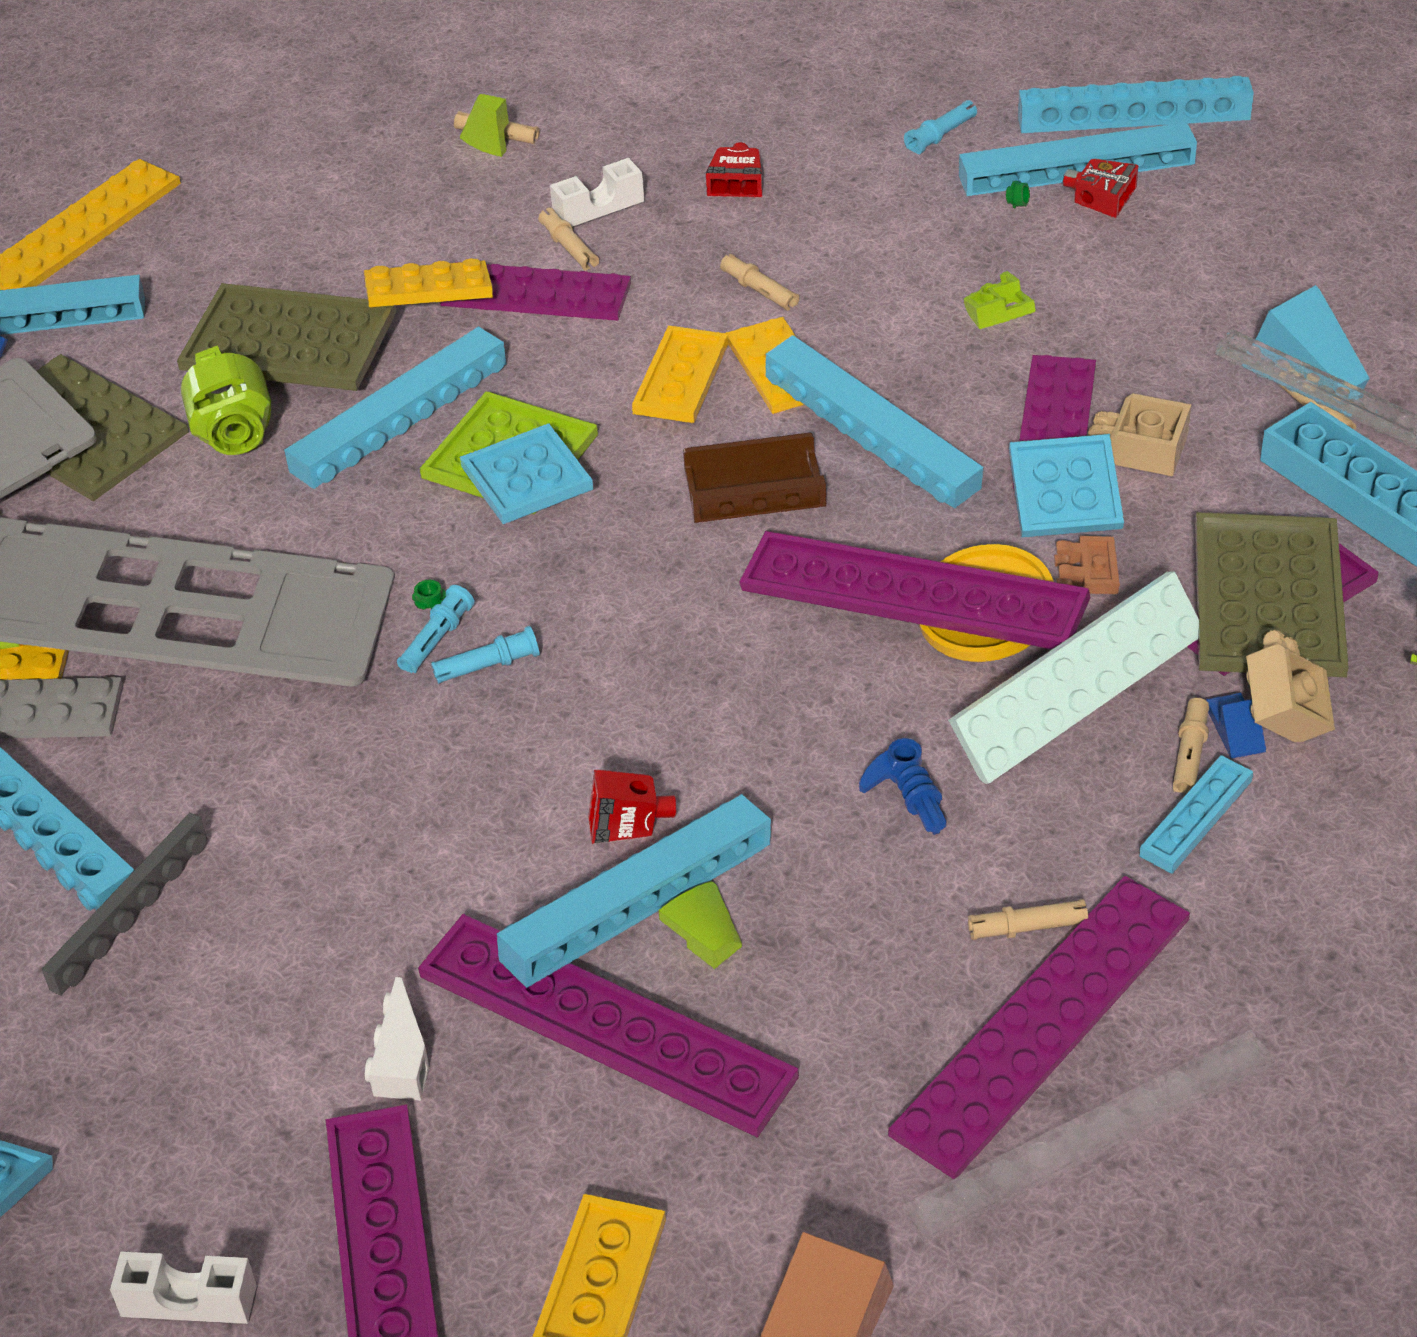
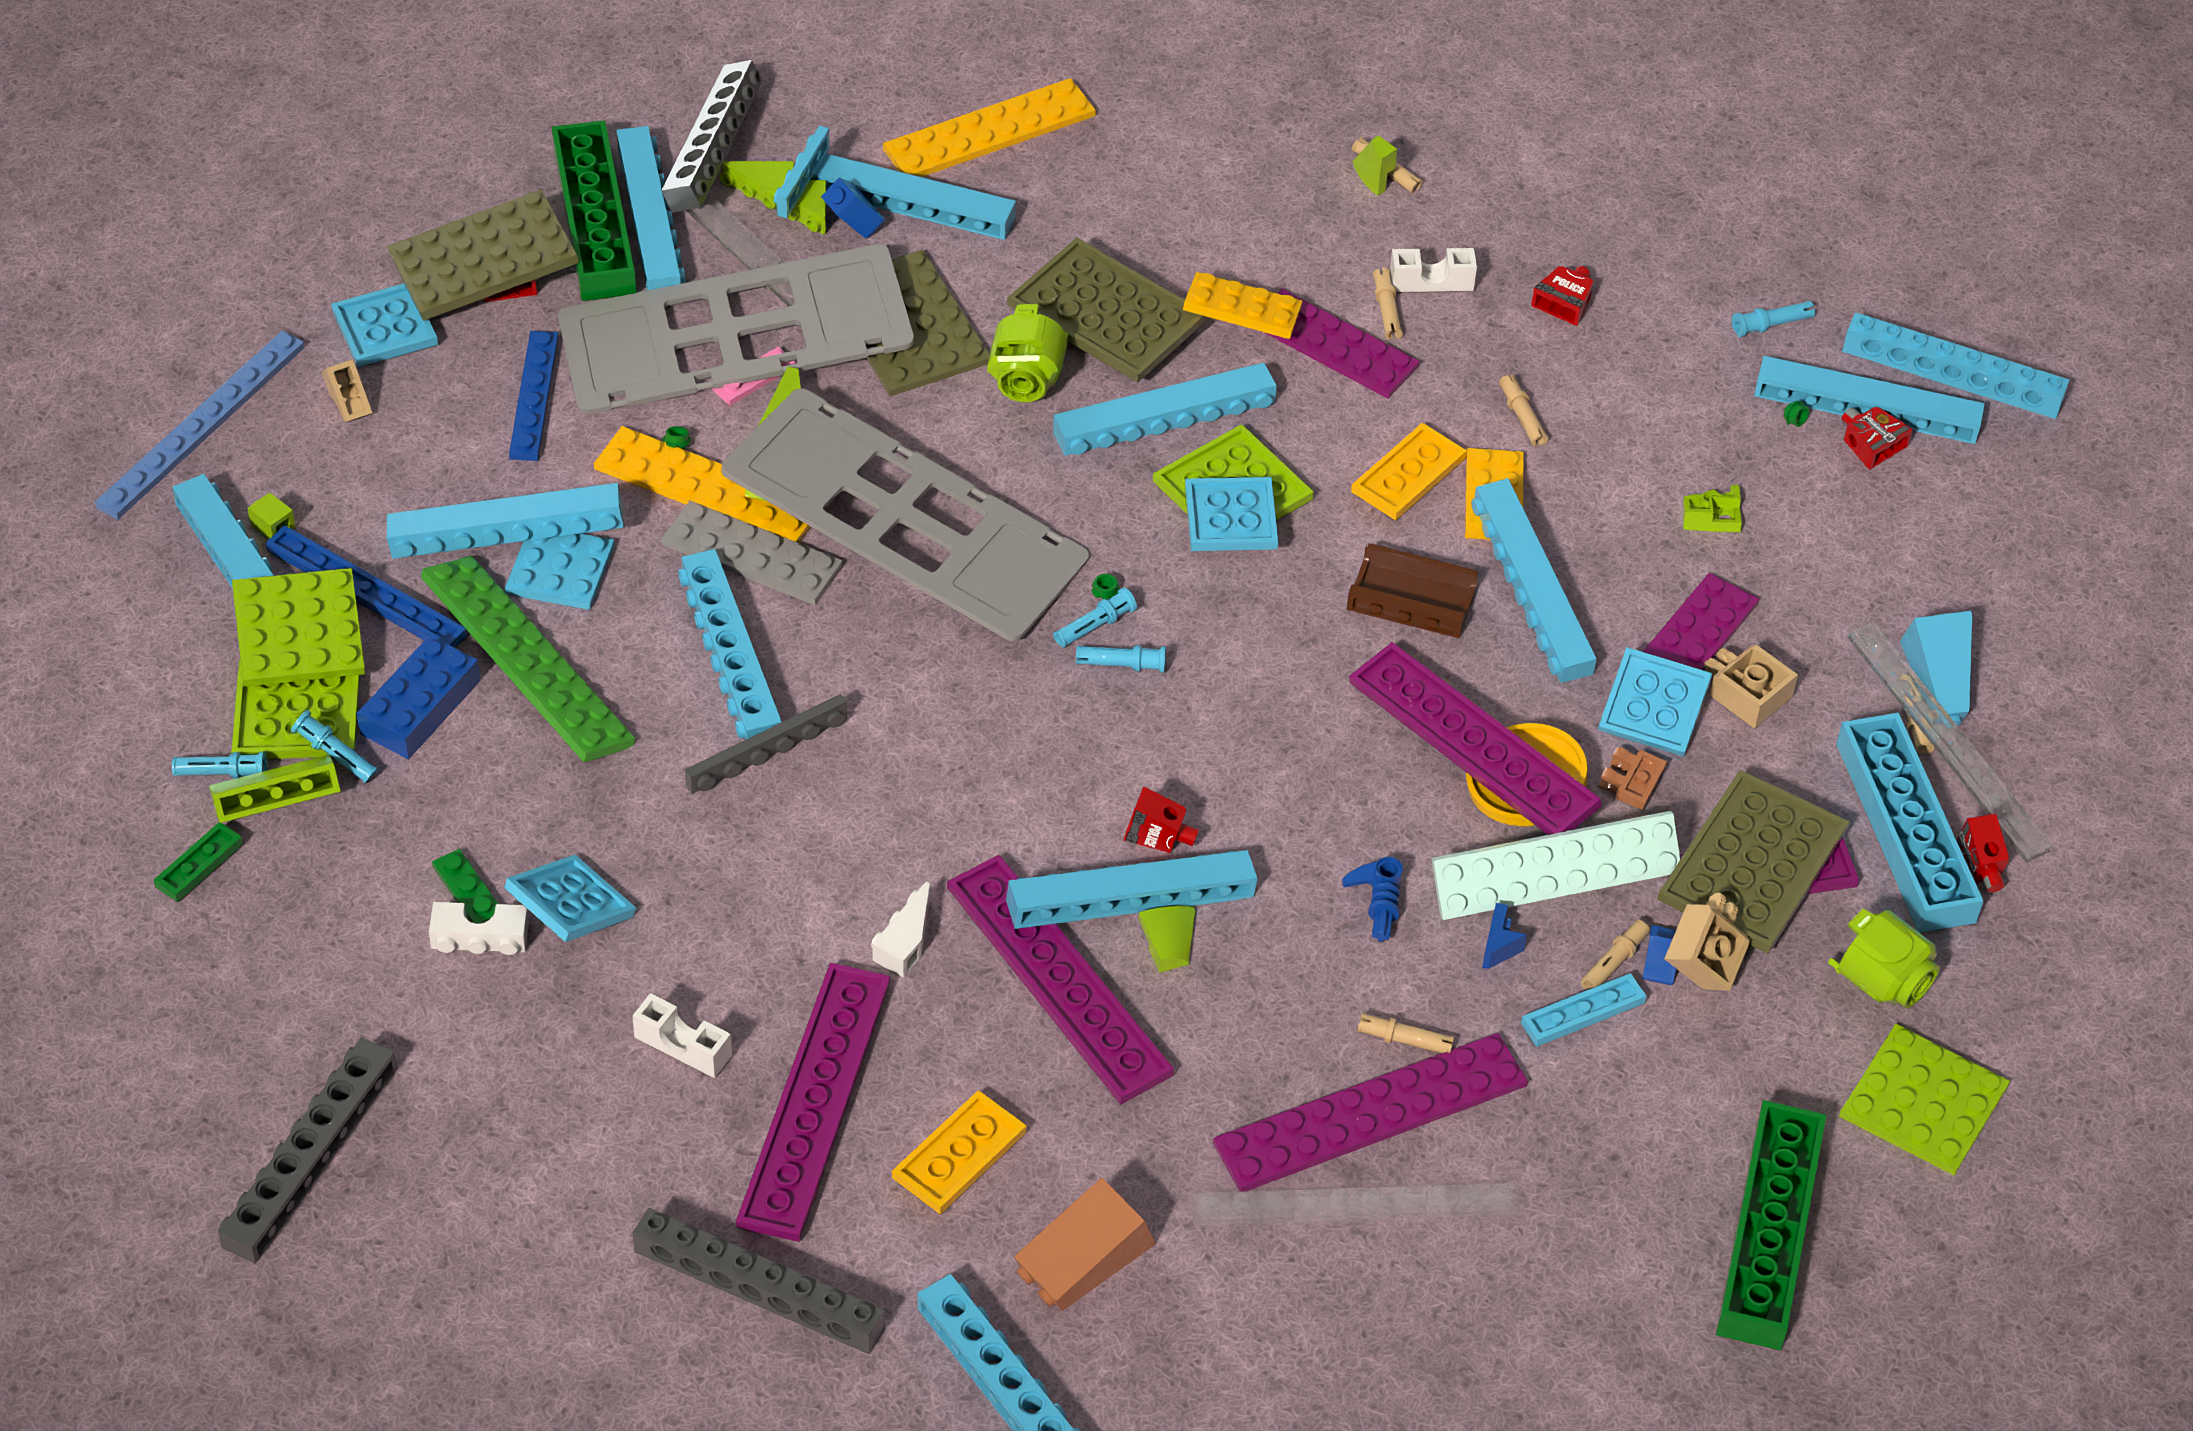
camera: 20 degrees right, 5 degrees up
(1064, 779) = (1501, 942): none -> blue slope

